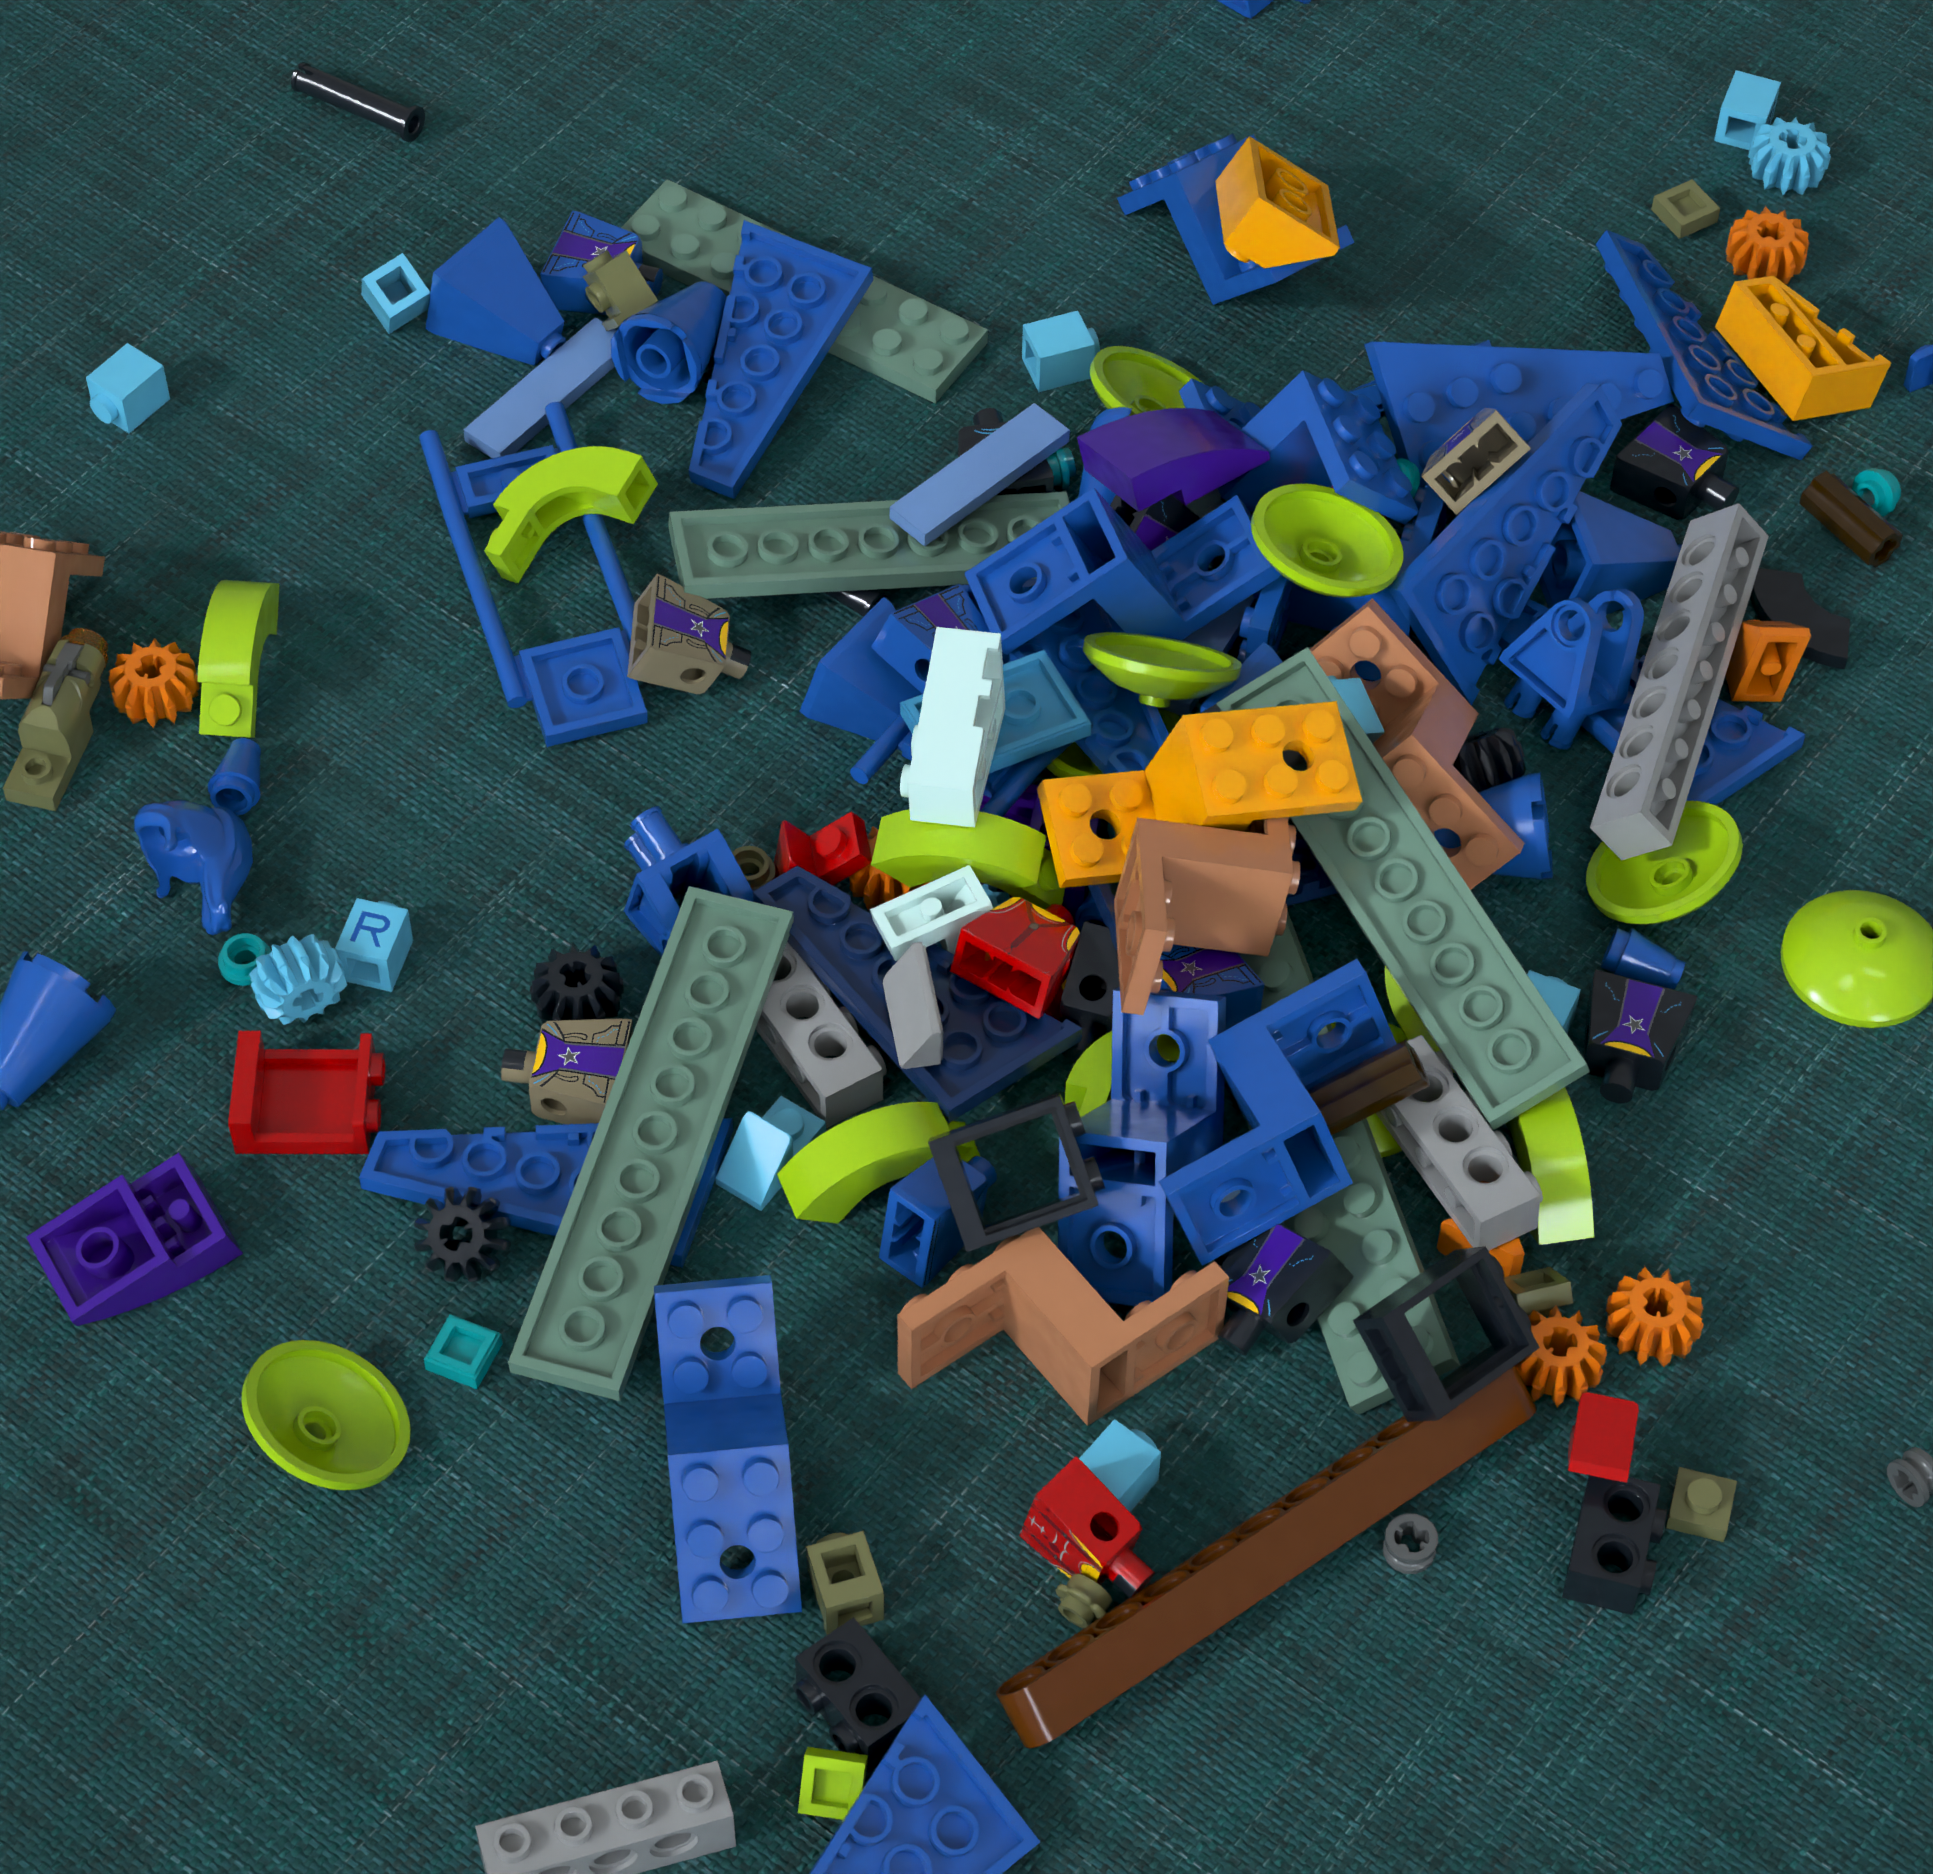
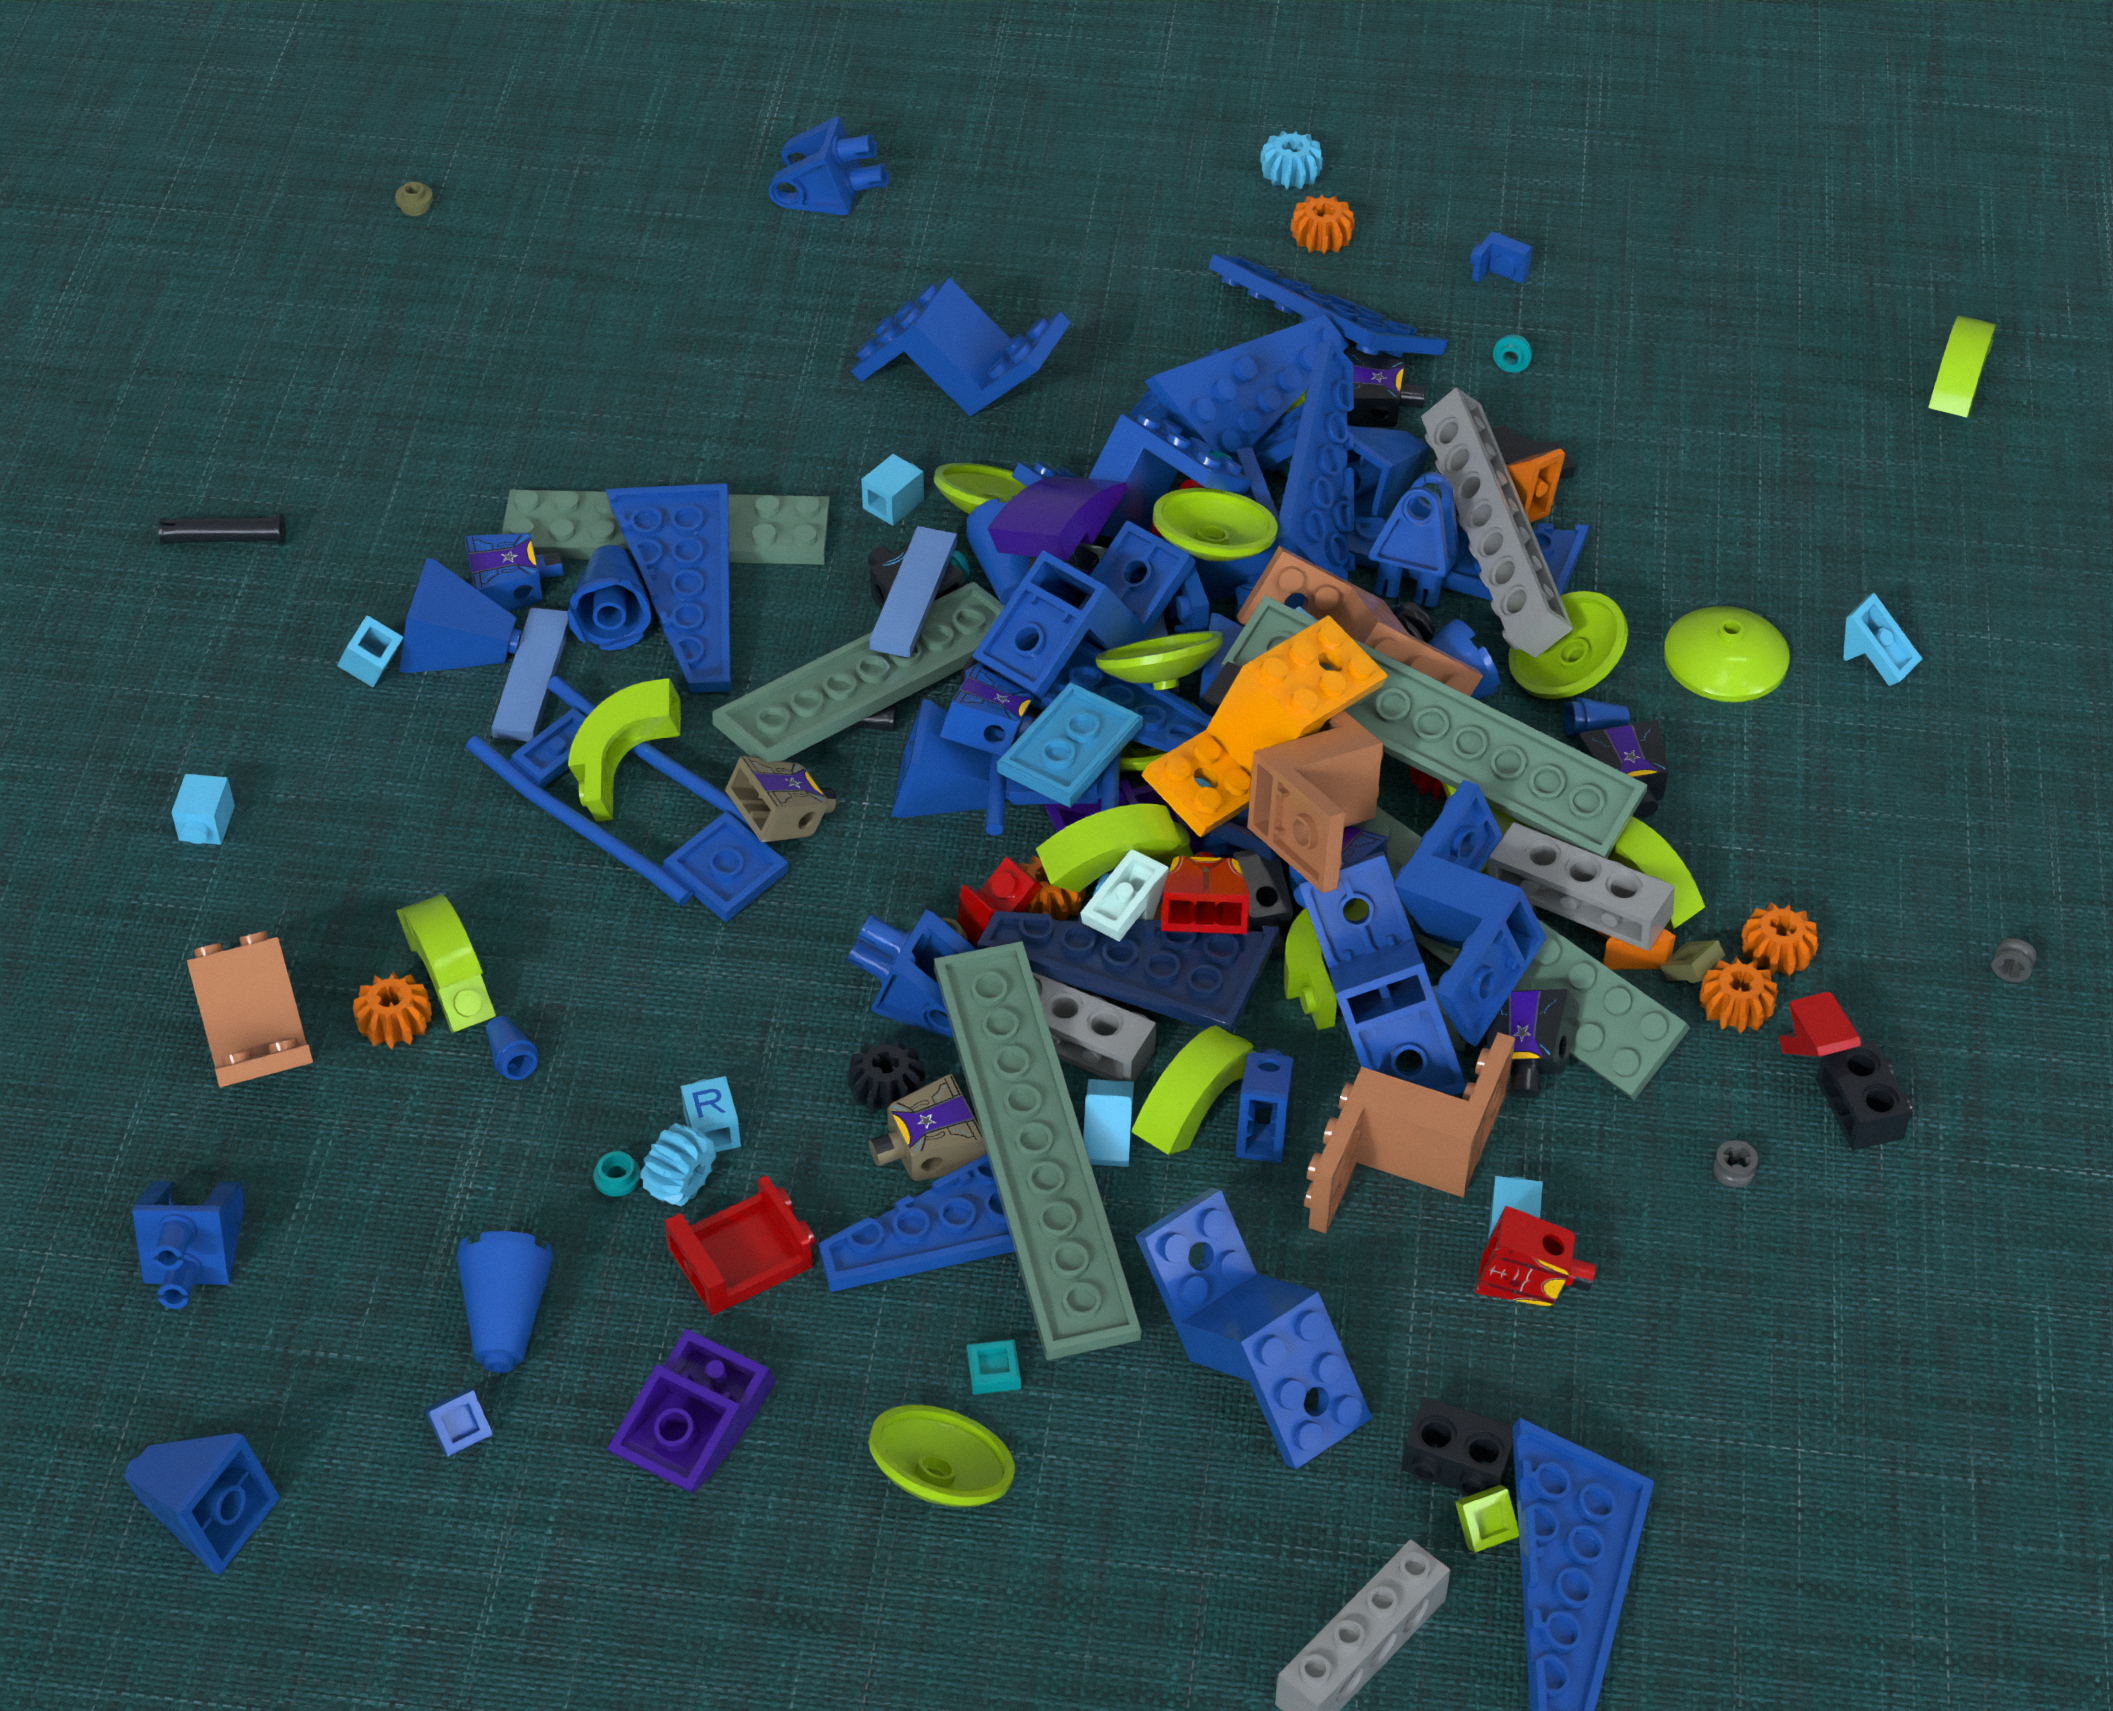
camera: 30 degrees left, 5 degrees down
(58, 721) = (338, 1070): olive plate -> none
(198, 848) = (526, 1109): blue piece -> none
(467, 1256) = (927, 1271): black gear -> none
(616, 287) = (547, 575): olive brick -> none
(860, 1591) = (1391, 1379): olive brick -> none
(914, 1010) = (1161, 965): light grey slope -> none
(956, 728) = (1067, 756): light aqua wedge -> none
(959, 1191) = (1297, 1067): black window -> none
(1082, 1600) = (1557, 1310): olive plate -> none
(1254, 1561) = (1653, 1218): reddish brown beam -> none
(1274, 209) = (1004, 321): light orange slope -> none
(1370, 1086) = (1520, 857): dark brown axle -> none
(1404, 1359) = (1662, 1030): black window -> none
(1473, 458) = (1276, 425): dark tan torso -> none
(1685, 209) = (1248, 221): olive plate -> none
(1701, 1504) = (1898, 1043): olive plate -> none
(1746, 106) = (1241, 141): medium azure brick -> none
(1795, 353) = (1396, 283): light orange wedge -> none
(1850, 519) = (1509, 376): dark brown axle -> none

